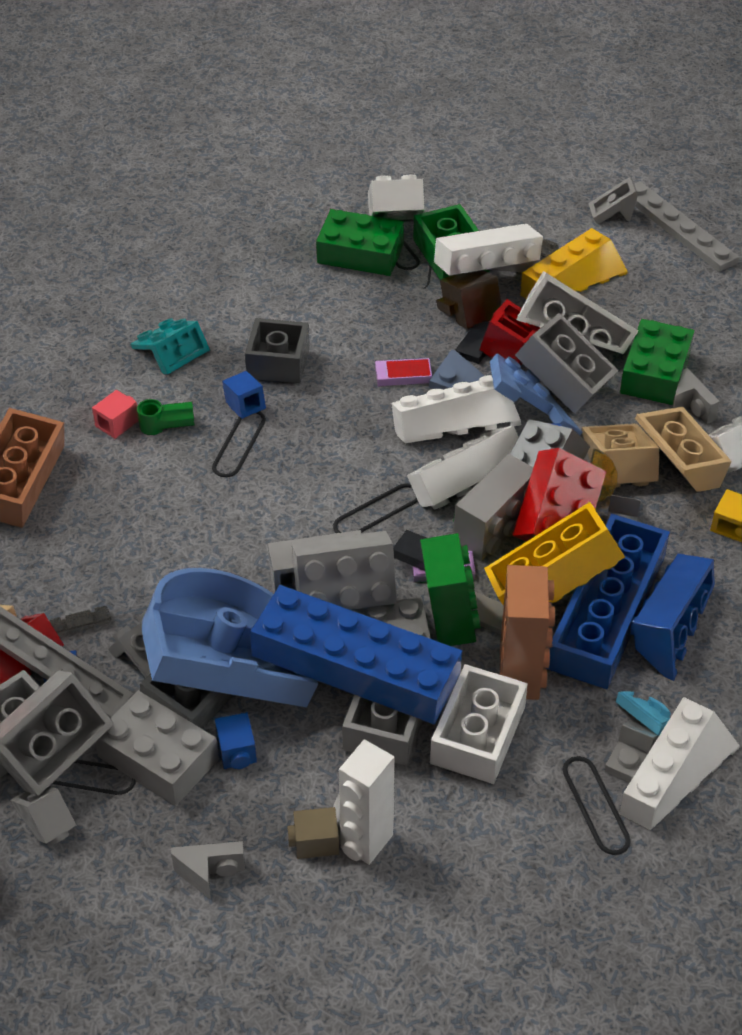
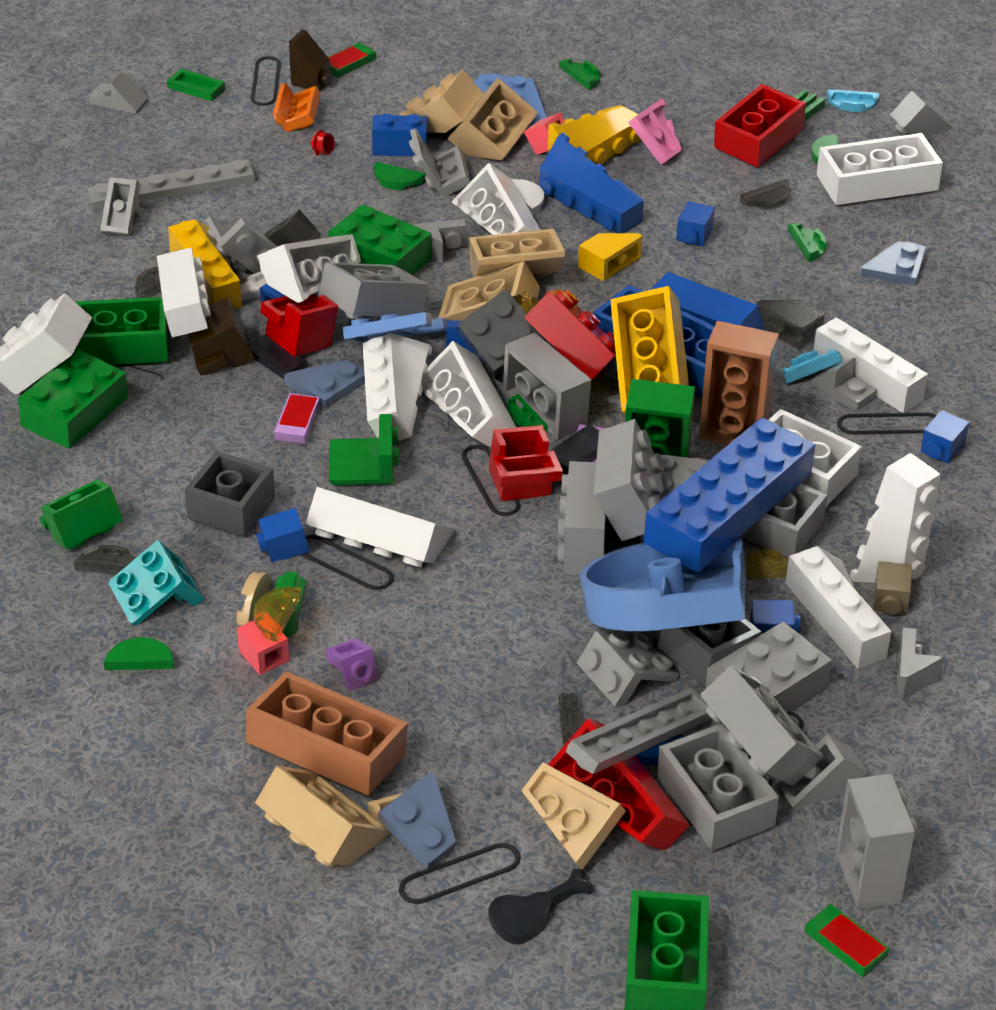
camera: 75 degrees left, 5 degrees down
(96, 356) = (139, 654): none -> green tile
(111, 467) = (355, 662): none -> medium lavender bracket
(132, 401) = (274, 611): none -> clear yellow tile
(176, 393) = (254, 588): none -> tan tile
(195, 311) = (105, 560): none -> clear smoke tile
(226, 281) = (81, 514): none -> green brick
(273, 449) = (377, 526): none -> white wedge
(292, 780) = (831, 598): none -> white wedge
(326, 729) = (766, 565): none -> clear yellow tile
(364, 421) = (365, 459): none -> green bracket
(382, 509) = (522, 463): none -> red plate
(576, 849) = (944, 436): none -> blue brick
(599, 274) = (241, 243): none -> light grey bracket
(635, 305) = (293, 229): none -> clear smoke slope
(712, 683) = (792, 320): none -> clear smoke slope

